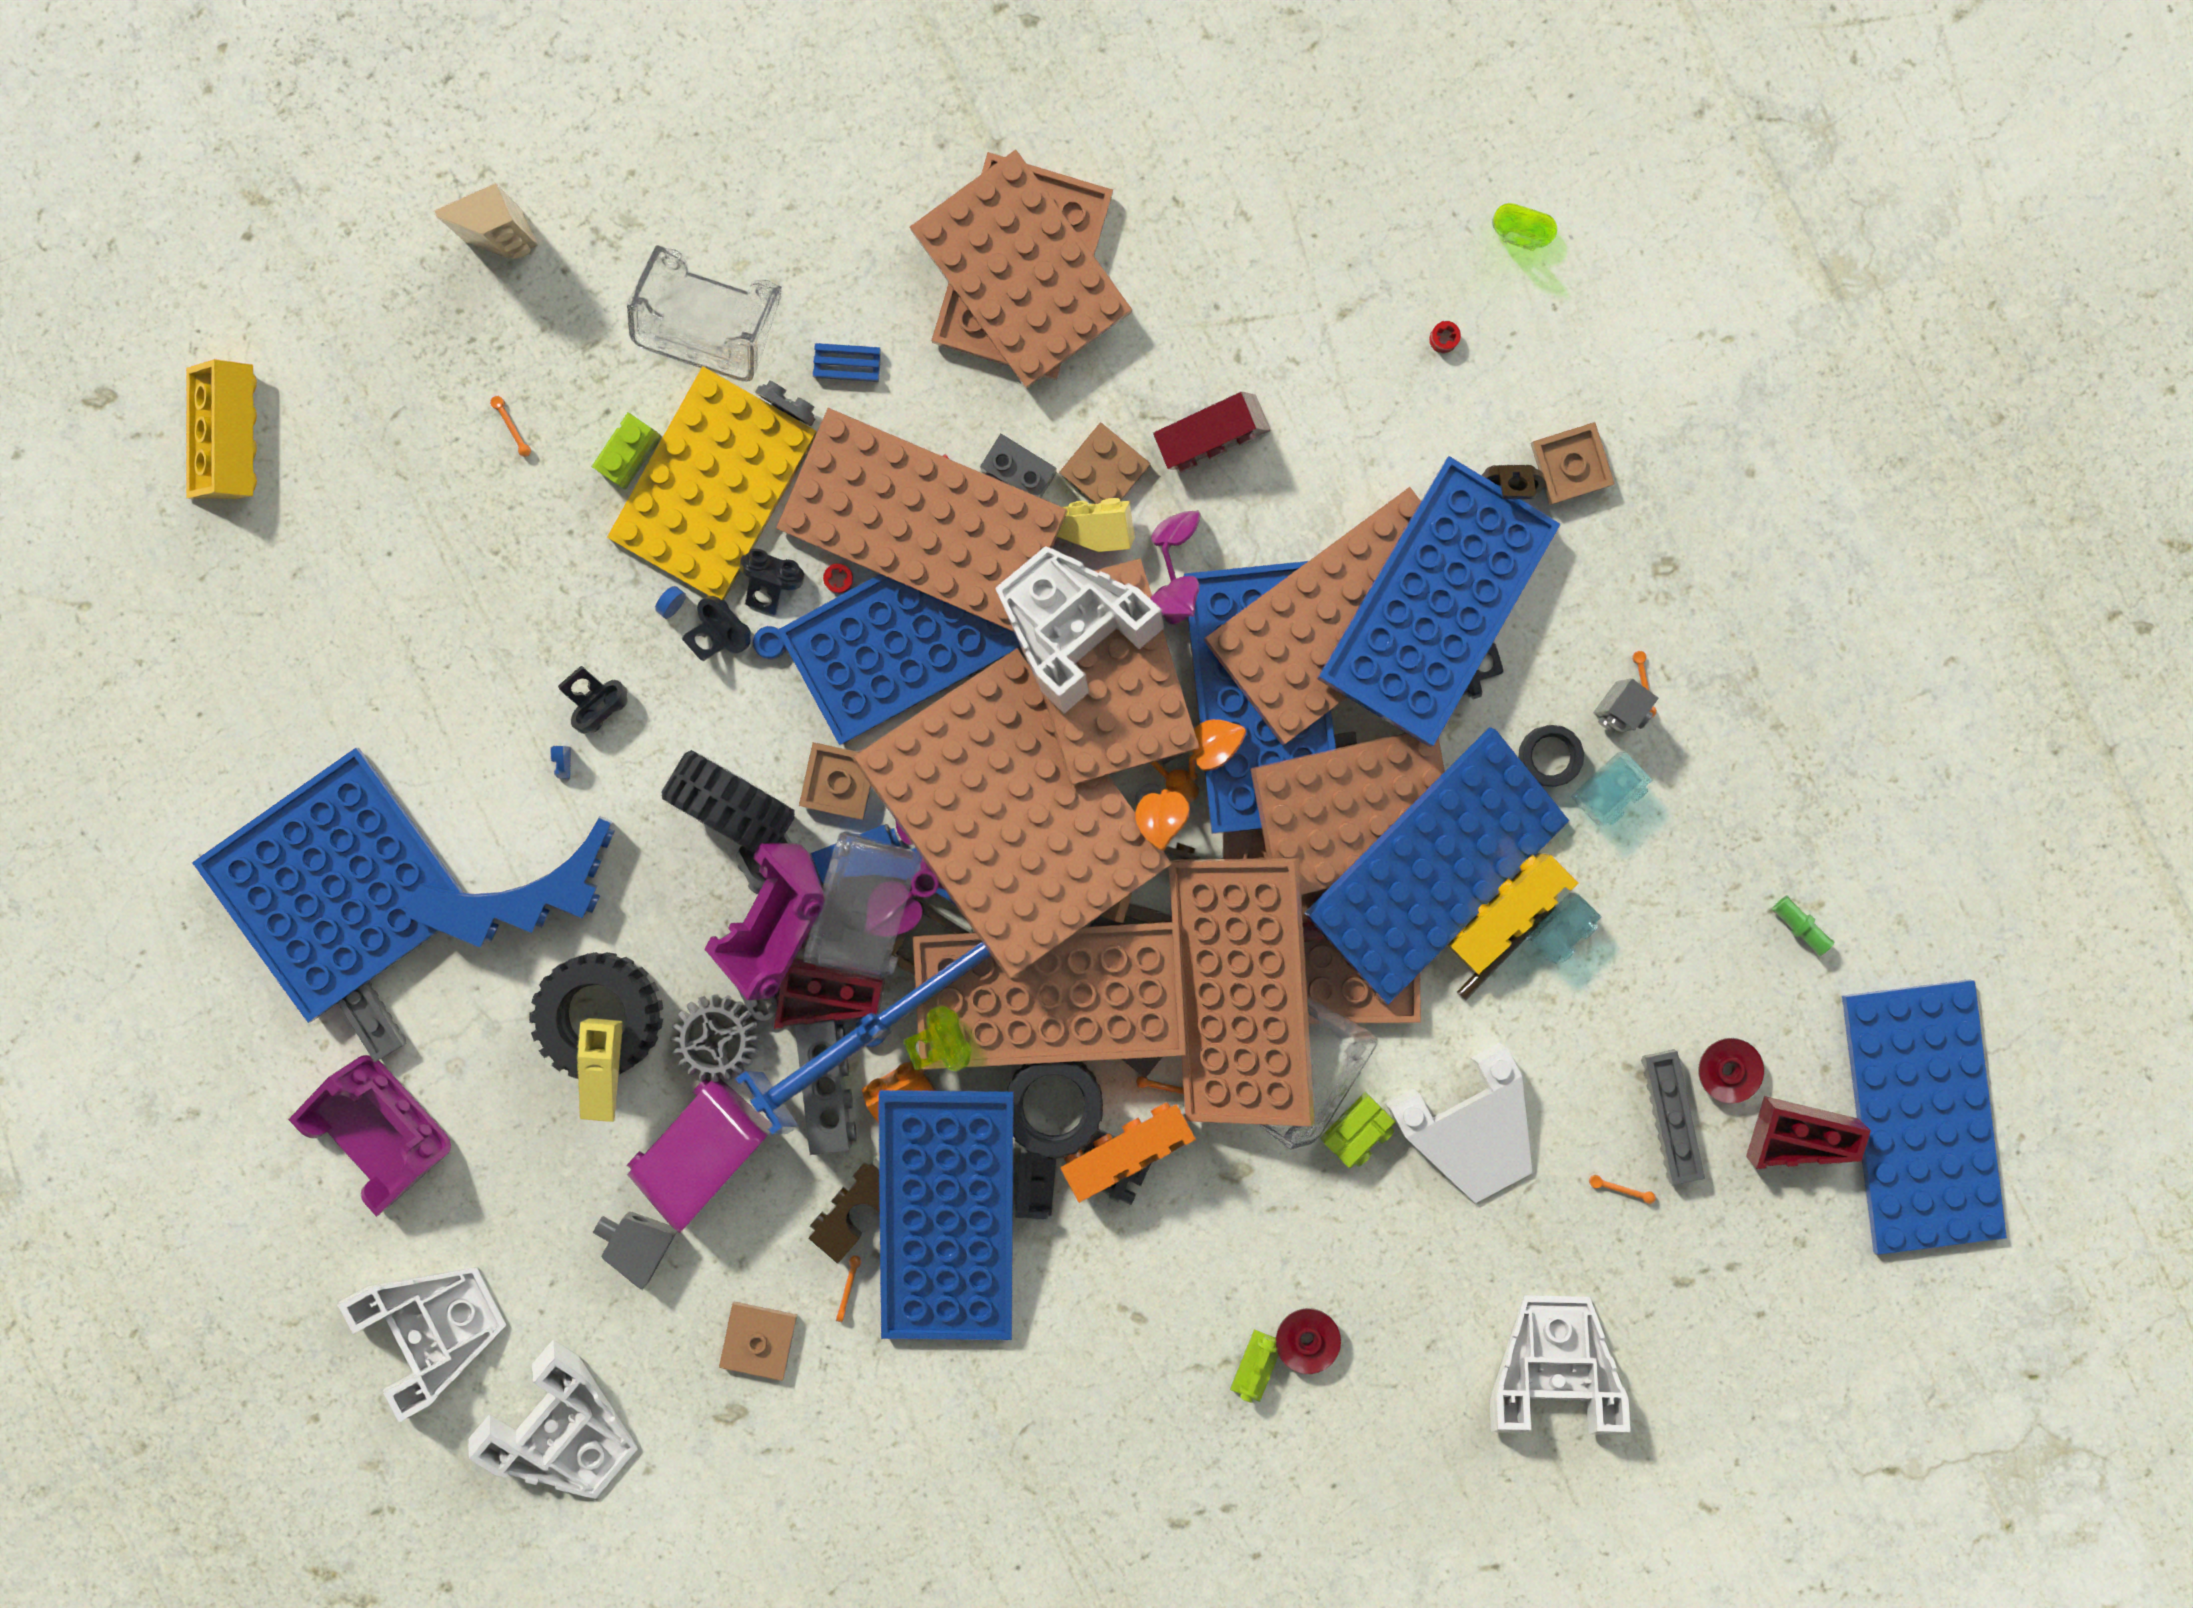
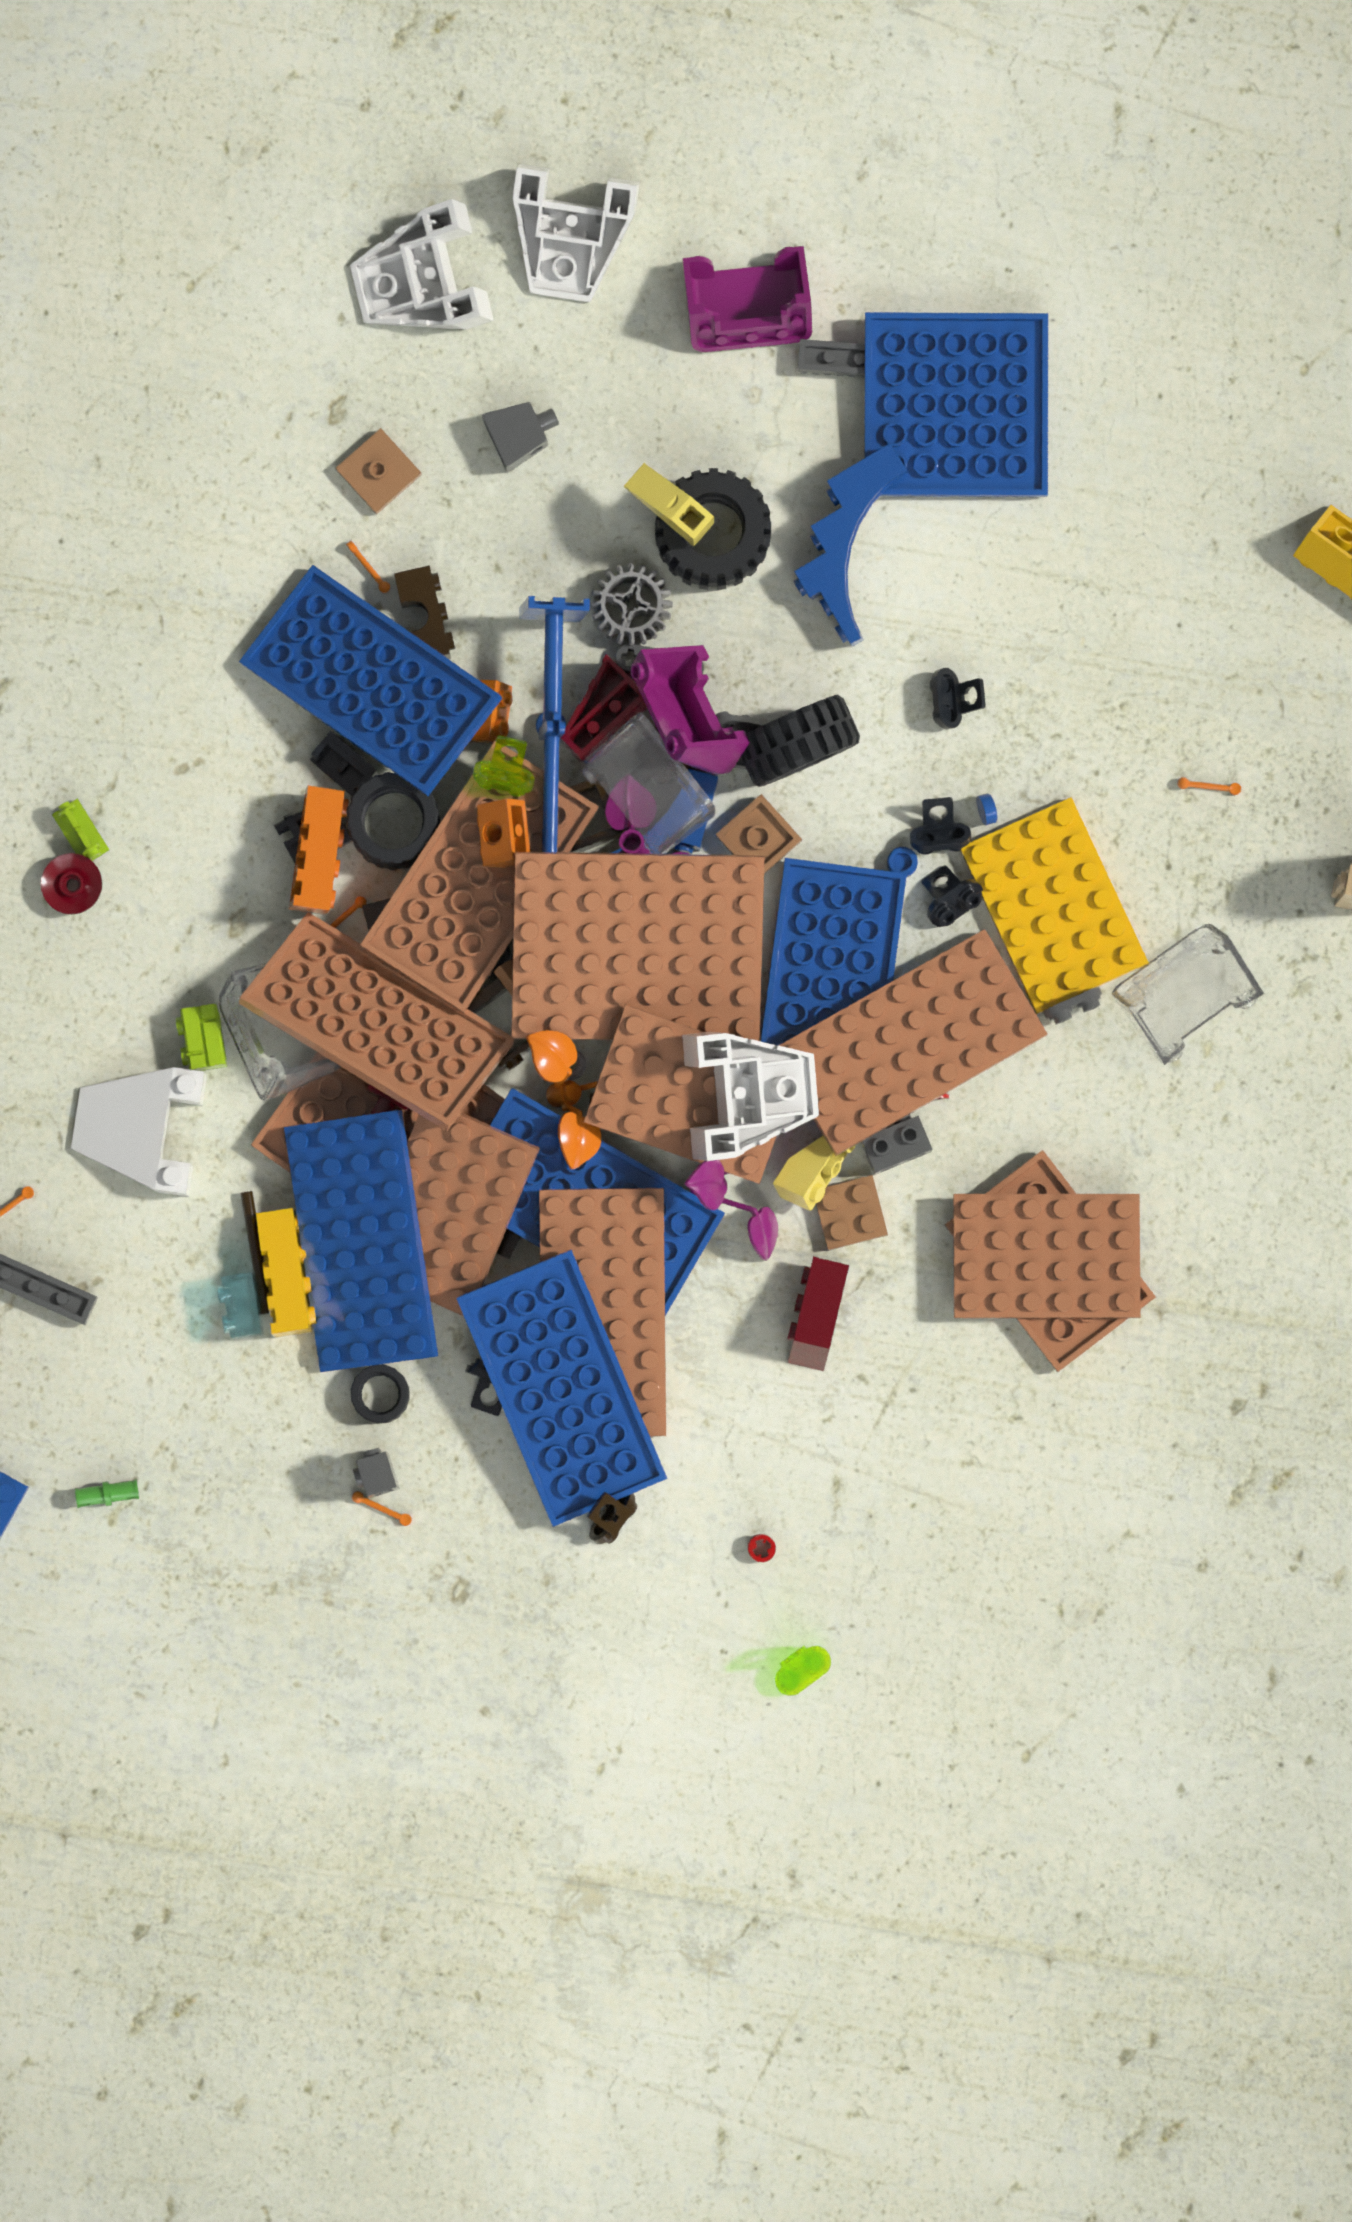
camera: 125 degrees right, 5 degrees down
(562, 757) = (927, 642): blue tile -> none
(626, 451) = (1124, 858): lime brick -> none
(698, 1152) = (554, 530): magenta windscreen -> none
(821, 1136) = (498, 630): dark grey brick -> none
(846, 349) = (1090, 1054): blue tile -> none
(848, 581) = (921, 944): red bush -> none
(997, 1003) = (503, 817): none -> orange brick
(1572, 463) = (592, 1574): medium nougat plate -> none
(1612, 789) = (320, 1419): clear light blue brick -> none
(1746, 1072) = (22, 1350): dark red dish -> none

